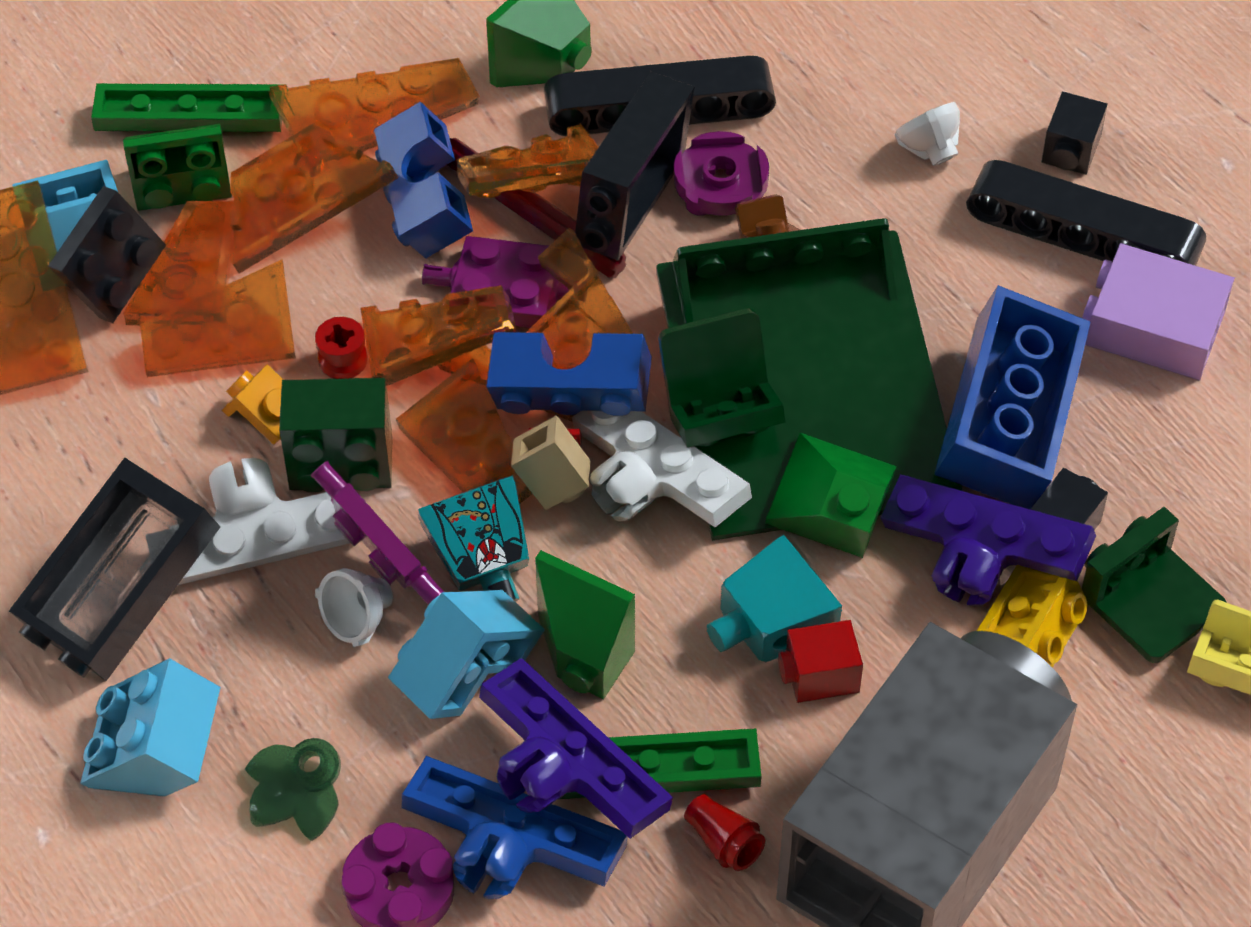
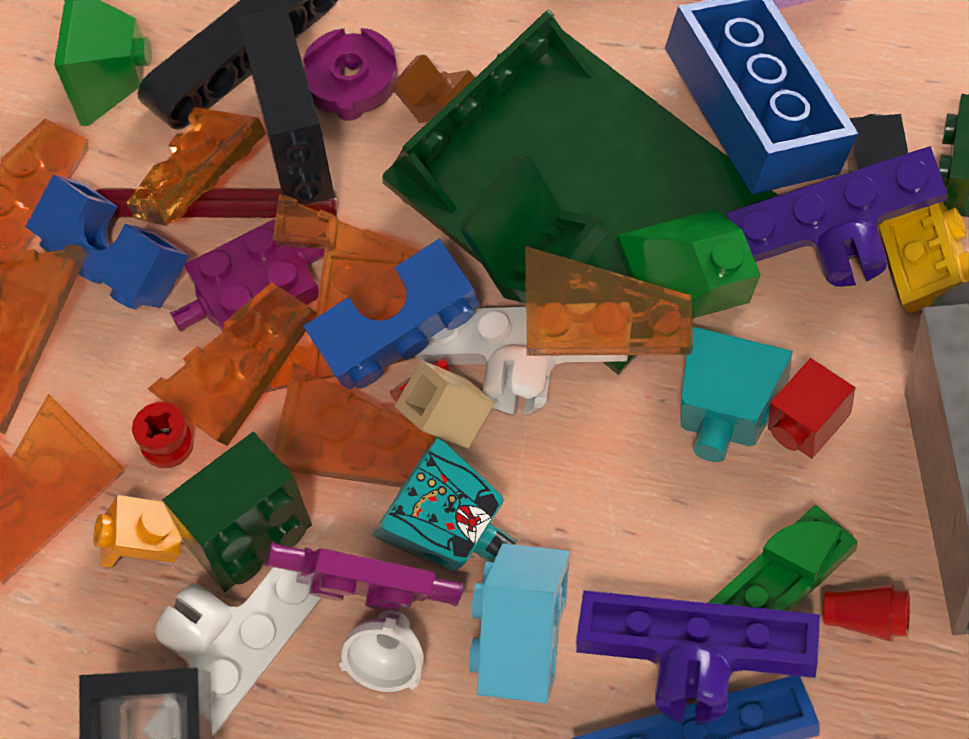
camera: 30 degrees left, 5 degrees up
(585, 625) = (601, 521): green slope -> none
(714, 748) = (803, 547): none -> green tile
(715, 471) = (600, 312): none -> clear orange wing

